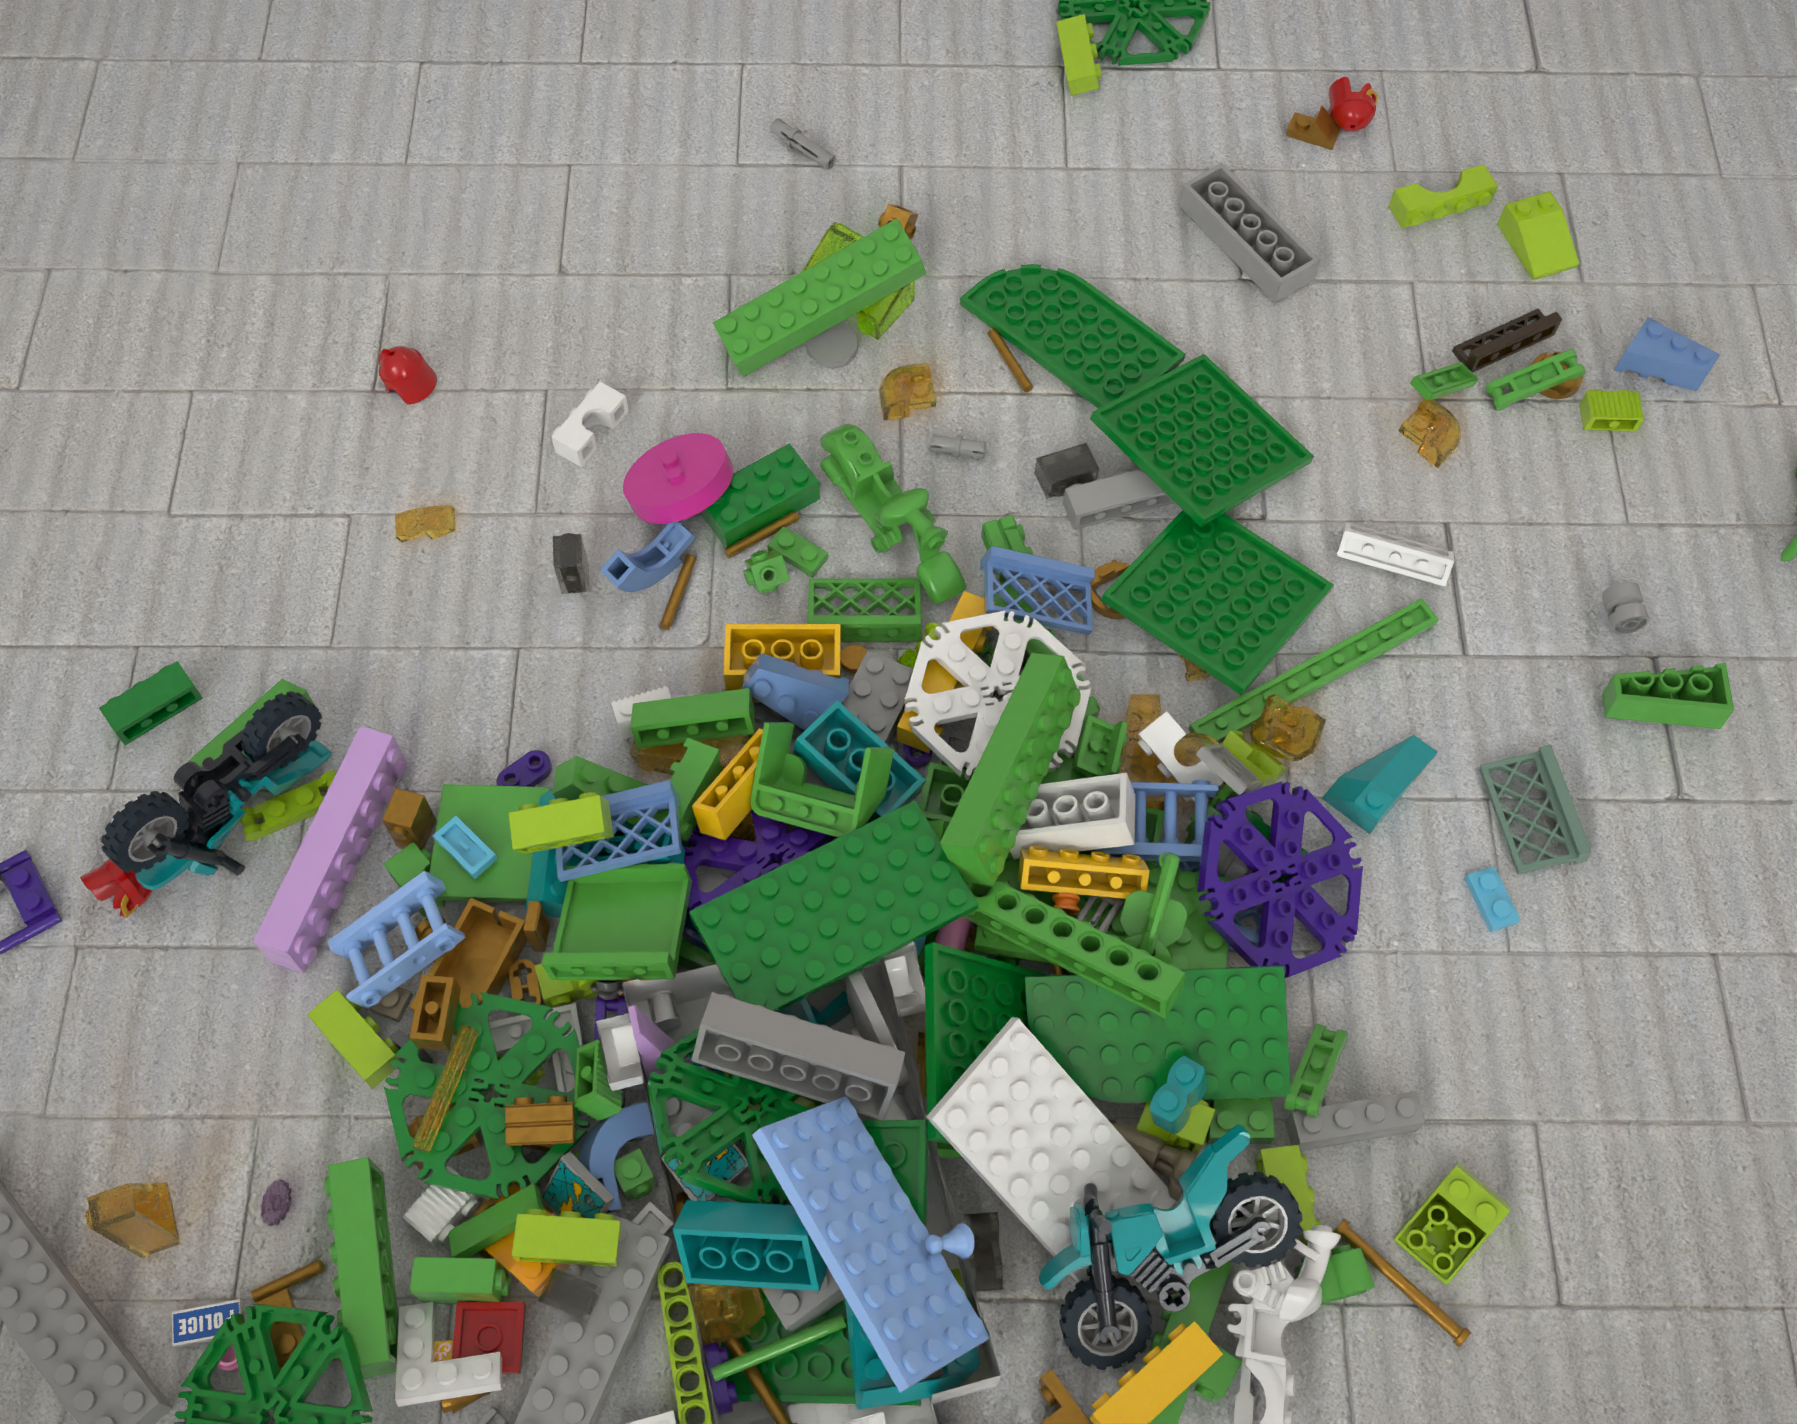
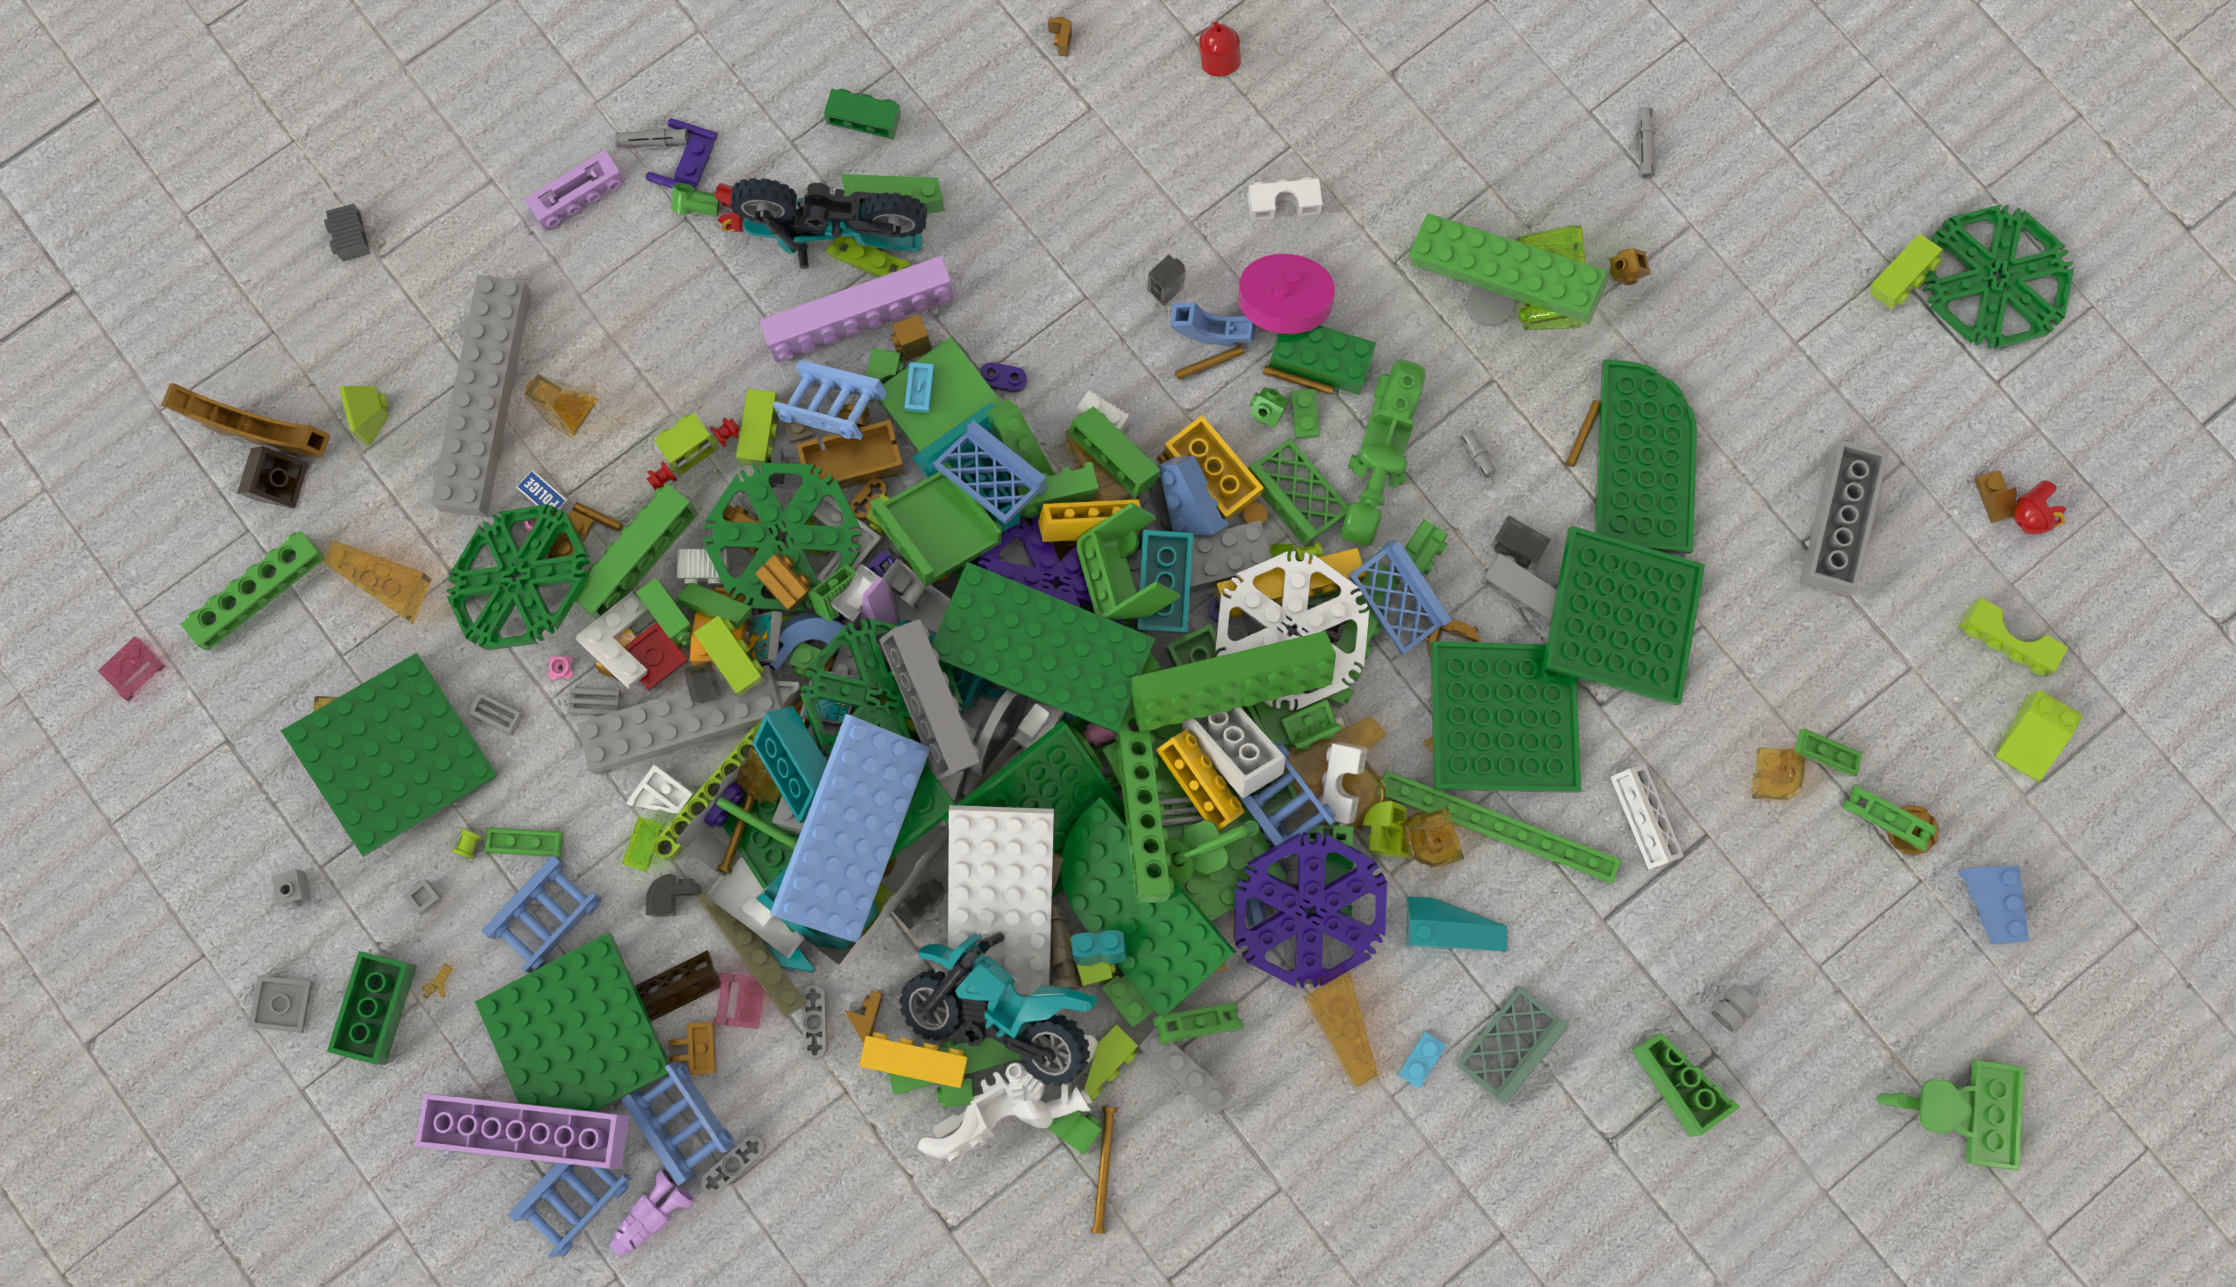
camera: 50 degrees right, 15 degrees up
(62, 926) = (687, 200): none -> bright green piece
(258, 480) = (1063, 31): none -> pearl gold bracket
(276, 1202) = (633, 470): clear purple piece -> none
(306, 1120) = (687, 446): none -> lime brick
(428, 521) = (1123, 161): clear yellow slope -> none
(435, 1012) = (797, 465): pearl gold brick -> none
(445, 1088) = (761, 509): clear yellow axle -> none
(536, 926) = (906, 473): pearl gold tile -> none
(560, 823) = (965, 436): lime brick -> none
(906, 390) = (1493, 384): clear yellow brick -> none
(957, 1241) = (895, 880): light blue piece -> none
(1067, 903) = (1172, 785): orange bush -> none
(1229, 768) = (1358, 820): light grey tile -> none
(1415, 942) = (1341, 1022): none -> clear yellow wedge
(1452, 1223) = (1168, 1177): lime slope -> none
(1507, 344) = (1911, 777): dark brown fence -> none
(1611, 410) = (1911, 891): lime brick -> none

